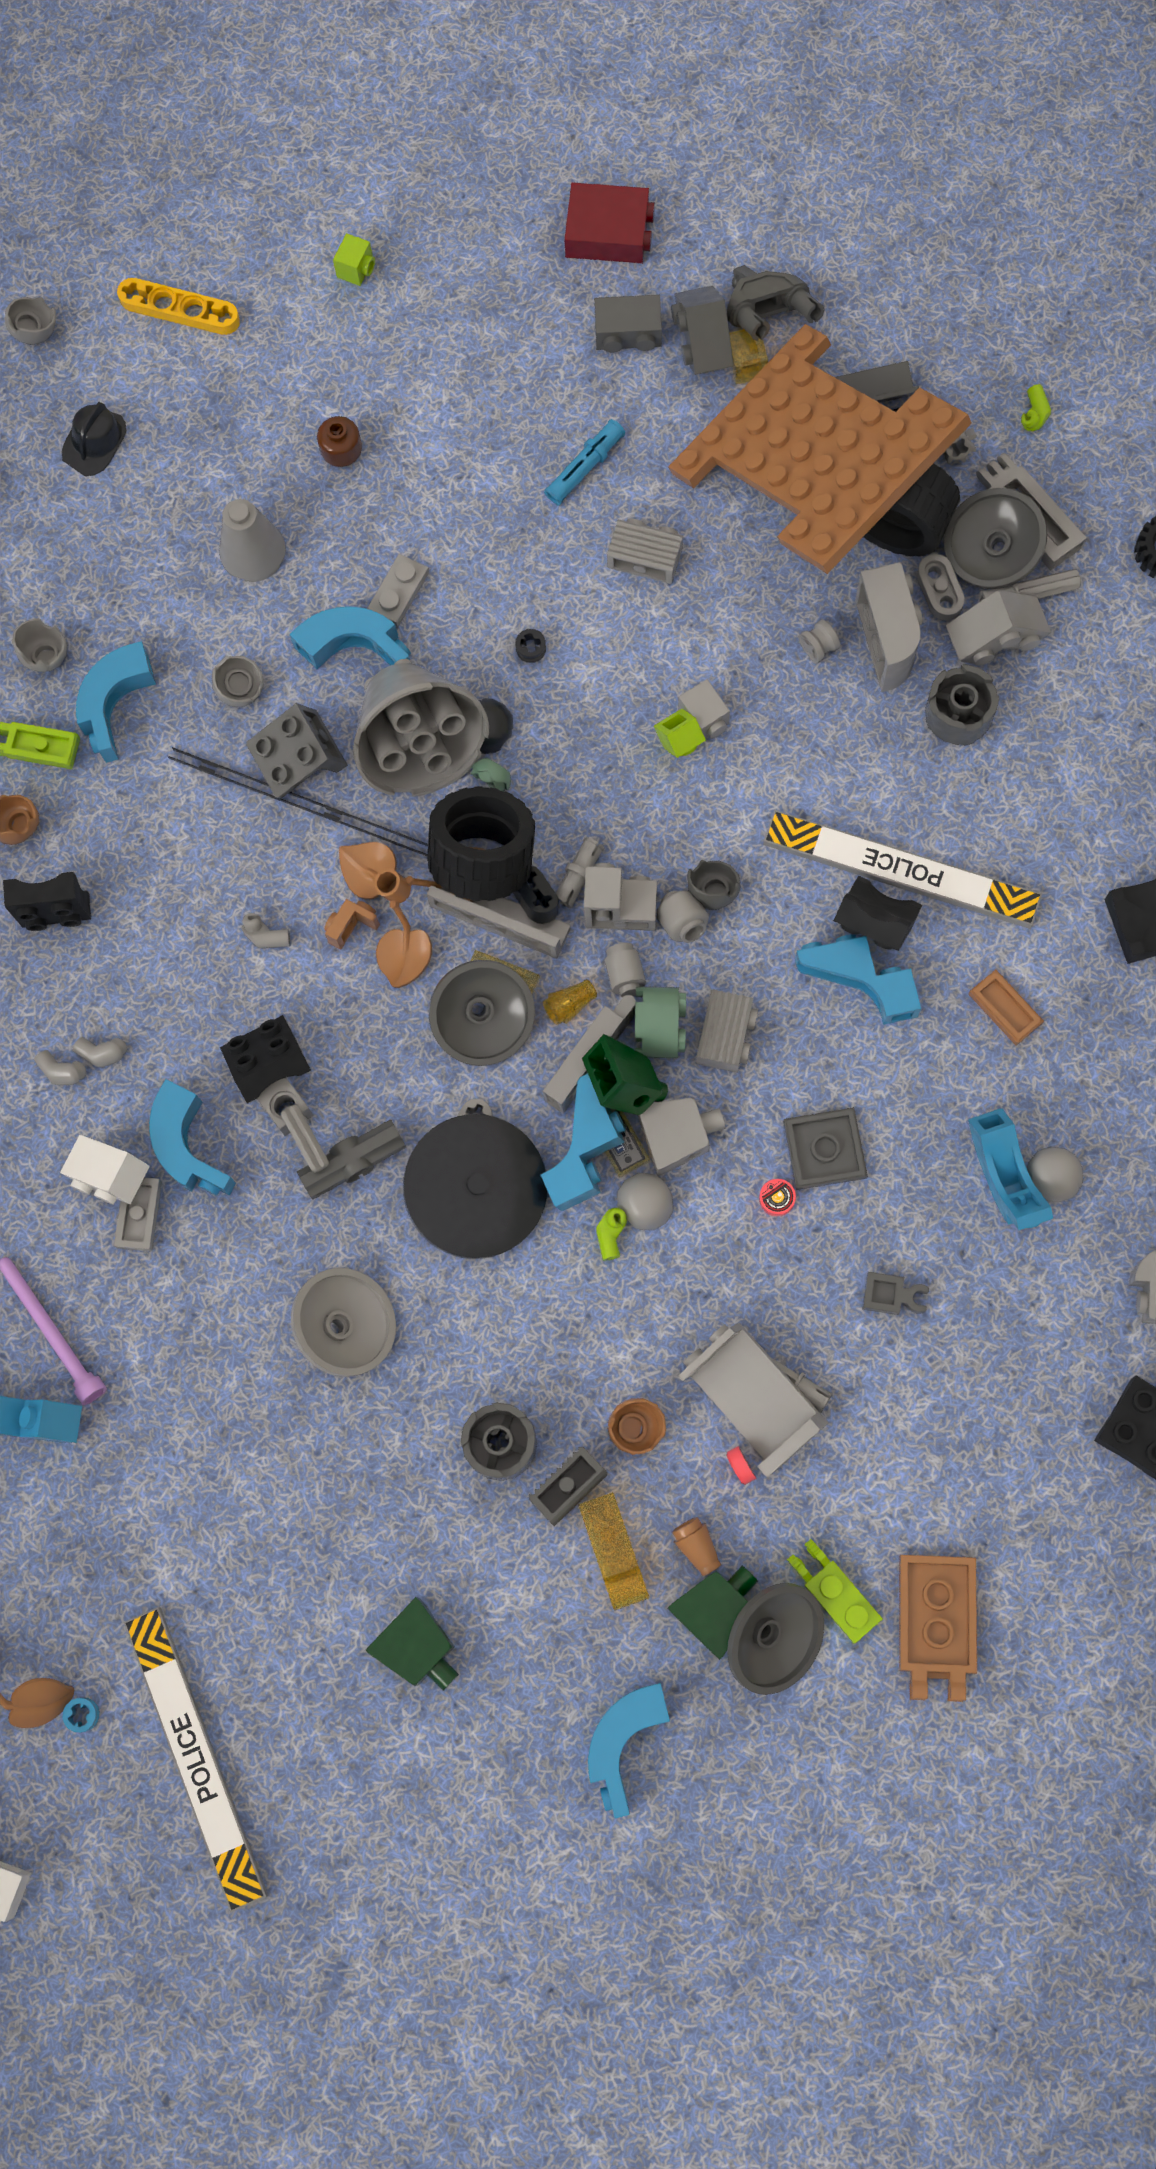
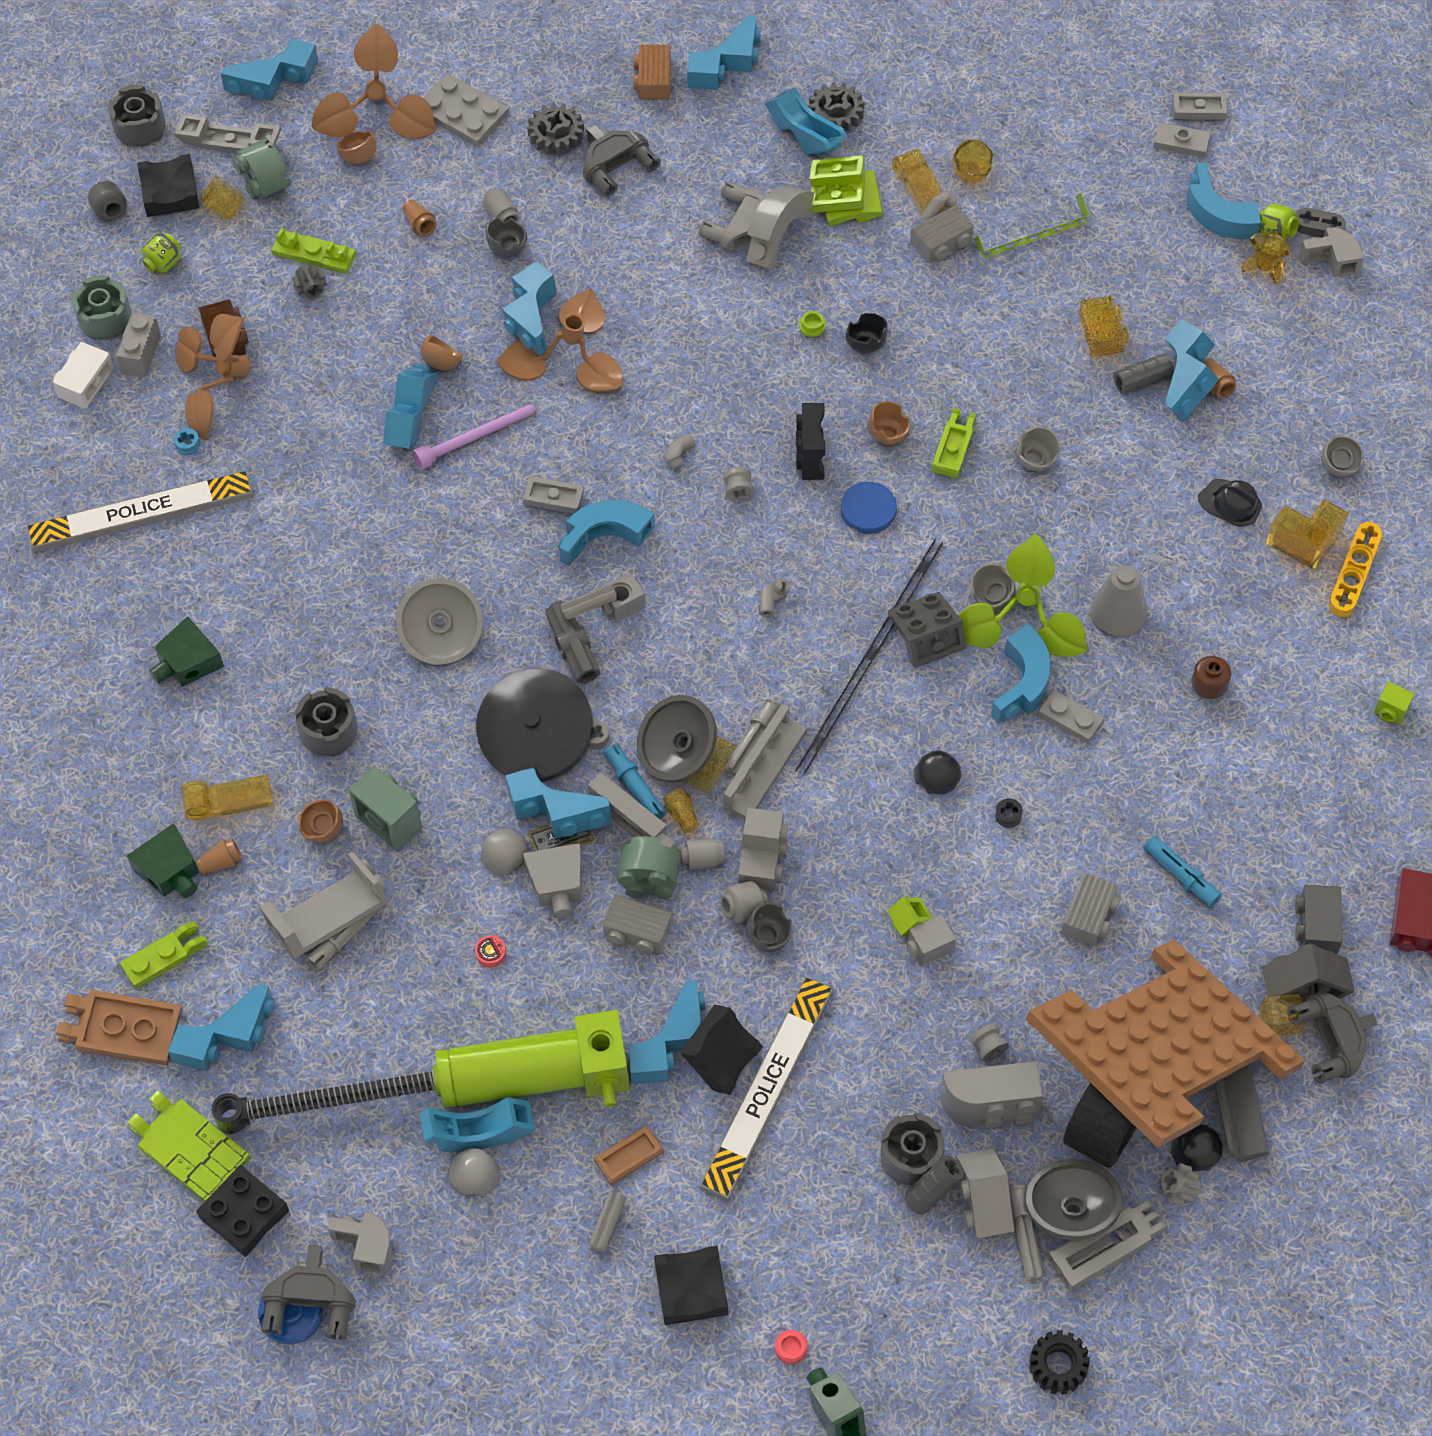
camera: 90 degrees right, 15 degrees down
(102, 1054) = (686, 478): light grey arm -> none
(103, 687) = (993, 491): dark azure arch -> none
(105, 1170) = (587, 469): white brick -> none
(108, 988) = (738, 483): none -> light grey wheel
(129, 835) = (868, 507): none -> blue tile
(145, 345) = (1307, 538): none -> clear yellow brick
(228, 615) = (1032, 568): none -> lime plant
(264, 1057) = (661, 581): black brick -> none
(341, 924) = (772, 651): medium nougat bracket -> none
(370, 873) = (818, 674): medium nougat plant -> none
(417, 731) = (928, 701): light grey cone -> none
(462, 932) = (754, 732): none -> light grey axle
(479, 872) = (841, 724): black tyre -> none
(492, 774) = (888, 768): sand green plate -> none
(539, 1059) = (628, 773): none -> dark azure pin
(541, 891) = (776, 785): black beam -> none
(568, 1486) = (282, 765): dark grey brick -> none
(575, 876) = (801, 832): light grey pin -> none
(608, 1232) = (483, 821): lime arm -> none
(616, 1342) = (386, 808): none -> sand green brick
(622, 1077) = (598, 828): dark green torso -> none
(624, 1718) = (86, 779): dark azure arch -> none
(740, 1465) = (277, 893): coral tile -> none
(775, 1638) = (122, 899): dark grey dish -> none
(825, 1148) = (526, 993): dark grey tile -> none
(886, 1294) = (392, 1024): dark grey plate -> none
(923, 1476) = (237, 1028): none -> dark azure arch
(940, 589) = (1033, 1151): light grey plate -> none
(949, 1183) = (474, 1074): none -> lime piece
(1003, 668) = (934, 1185): none -> dark grey axle
(1040, 409) = (1213, 1271): lime arm -> none
(1077, 1508) = (188, 1146): none -> lime tile
(1088, 1020) = (607, 1221): none -> light grey axle

